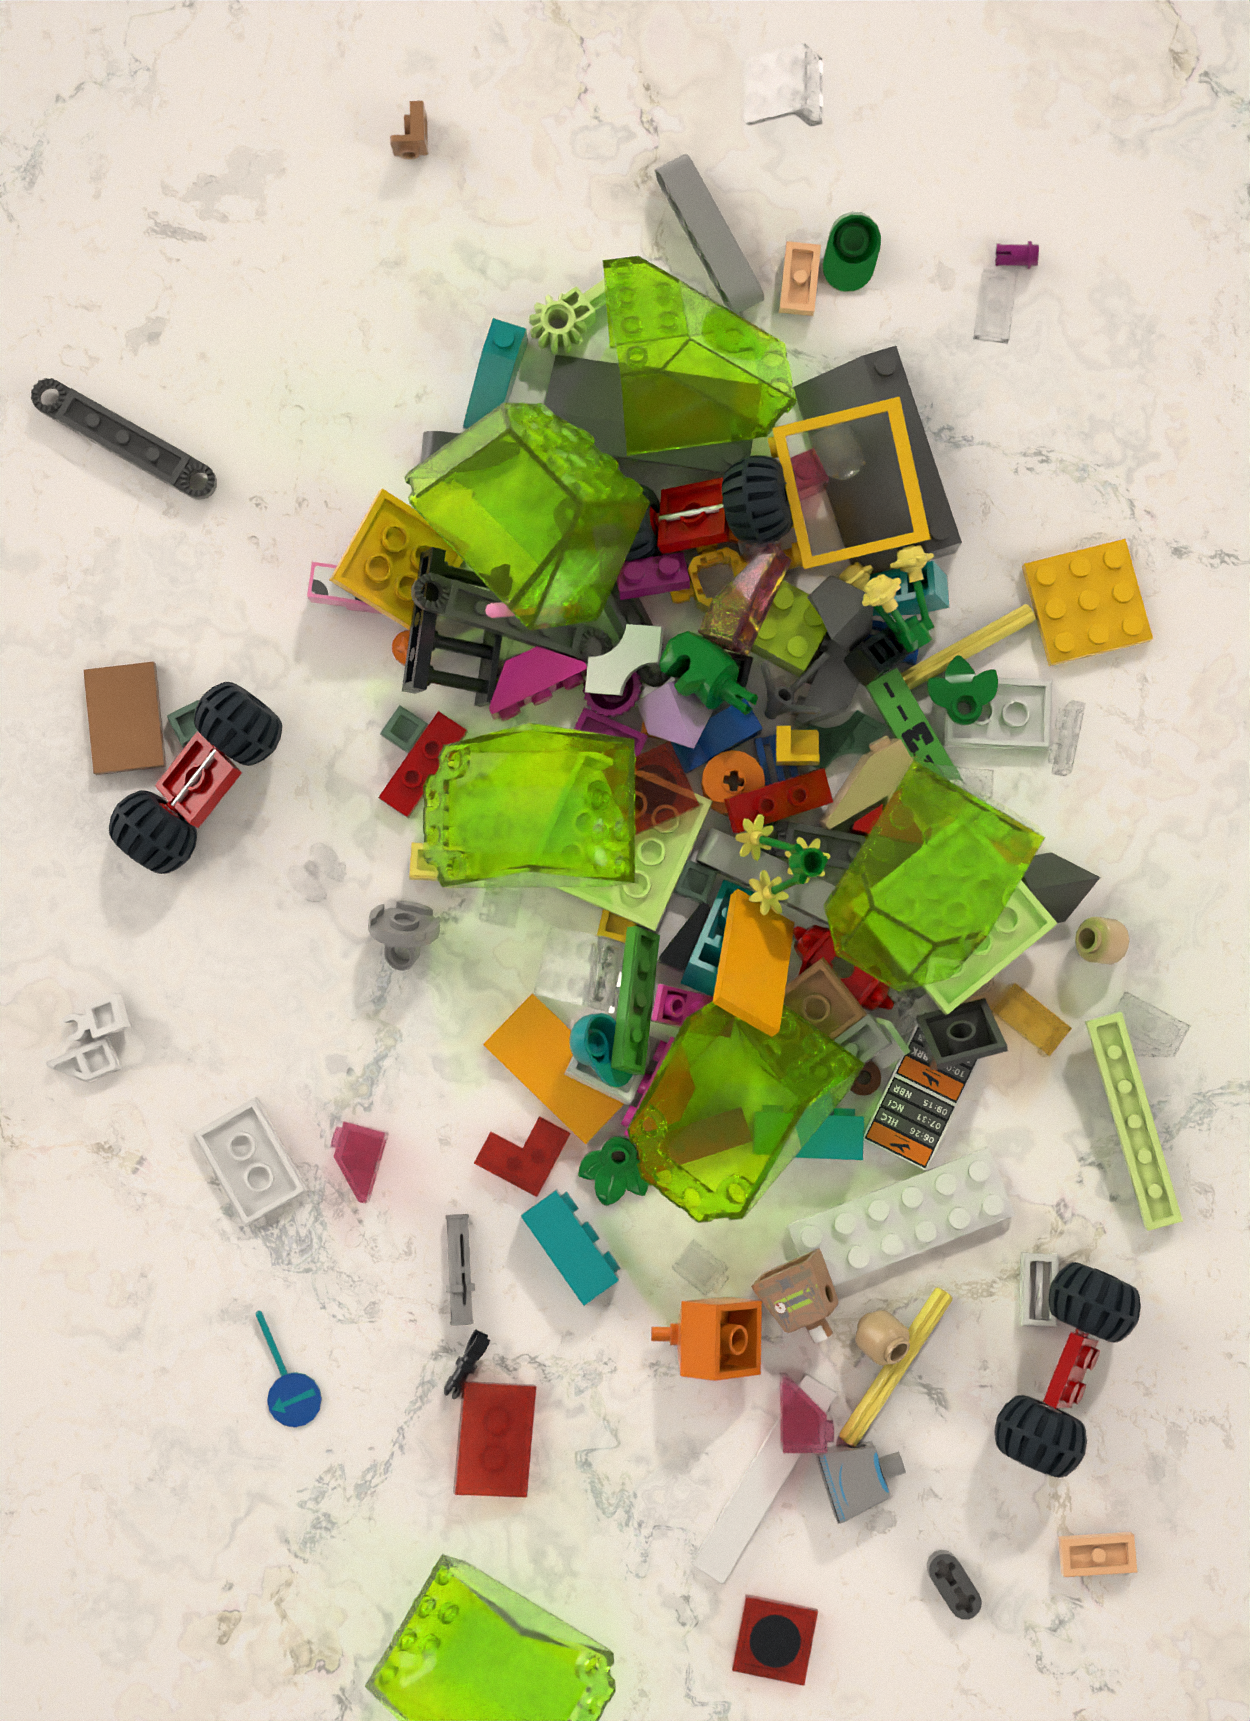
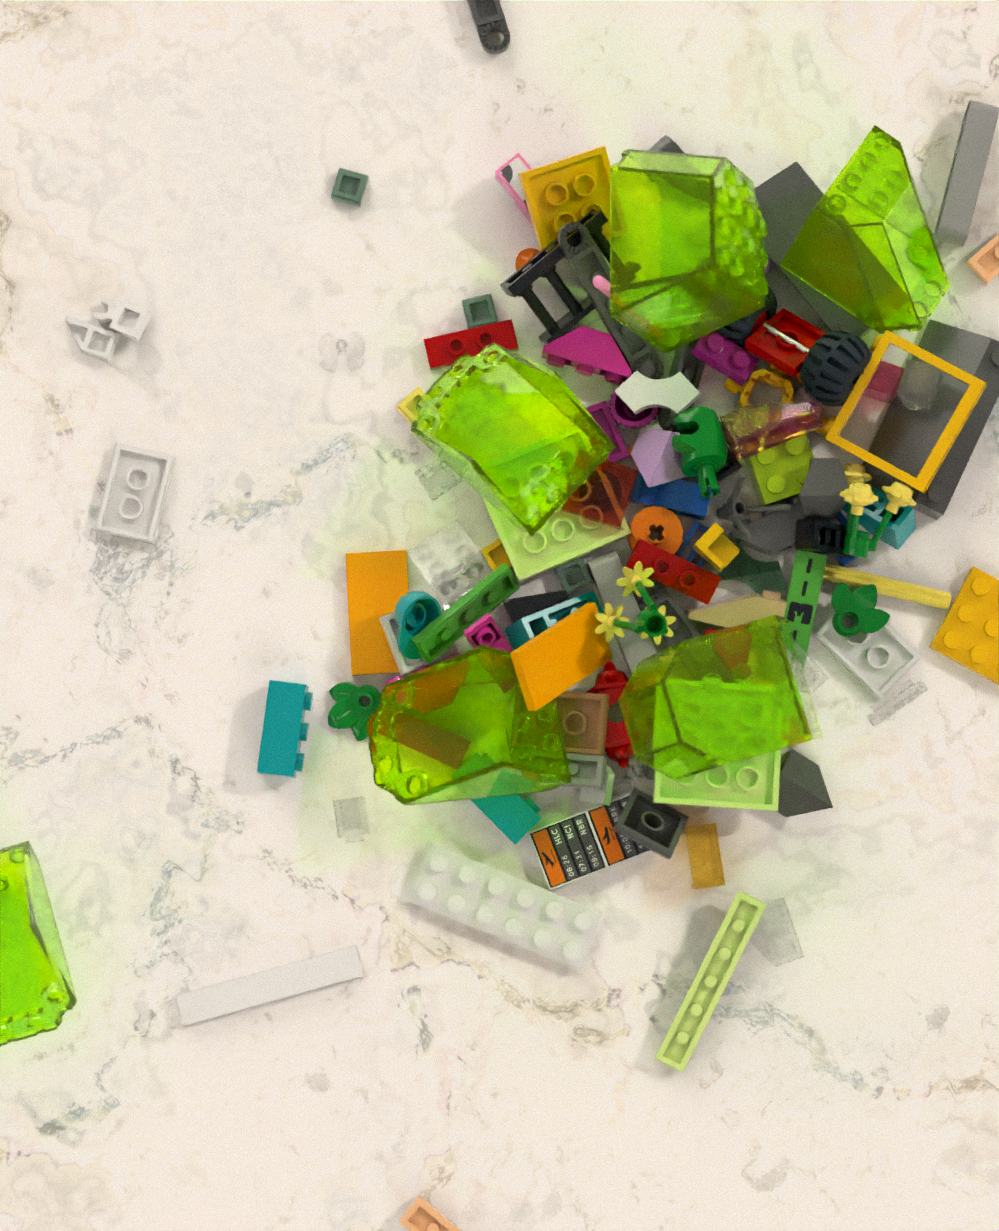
camera: 40 degrees right, 0 degrees up
(124, 718) = (312, 145): medium nougat tile -> none
(164, 832) = (372, 209): black plate -> none
(294, 1396) = (27, 663): blue piece -> none
(359, 1156) = (204, 552): clear pink slope -> none
(405, 926) = (365, 435): light grey tile -> none
(459, 1270) = (201, 679): light grey pin -> none
(466, 1365) = (152, 741): black piece -> none
(494, 1439) = (126, 804): clear red tile -> none
(496, 369) = (750, 135): teal slope -> none
(528, 1165) = (307, 655): clear red tile -> none
(575, 309) = (834, 143): yellowish green gear -> none
(716, 1338) = (321, 869): orange piece -> none
(774, 1639) = (183, 1090): clear red tile -> none
(799, 1295) = (397, 892): medium nougat torso -> none
(802, 1420) = (326, 969): clear pink slope -> none
(857, 1477) = (327, 1037): light grey torso -> none
(872, 1085) = (564, 805): reddish brown plate -> none
(882, 1337) = (424, 967): tan head -> none
(892, 1373) = (416, 994): light yellow axle -> none
(960, 1580) = (318, 1162): dark grey beam -> none
(1026, 1257) = (552, 1048): white tile -> none
(1037, 1430) = (468, 1117): black plate -> none
(1102, 940) = (797, 849): tan head -> none

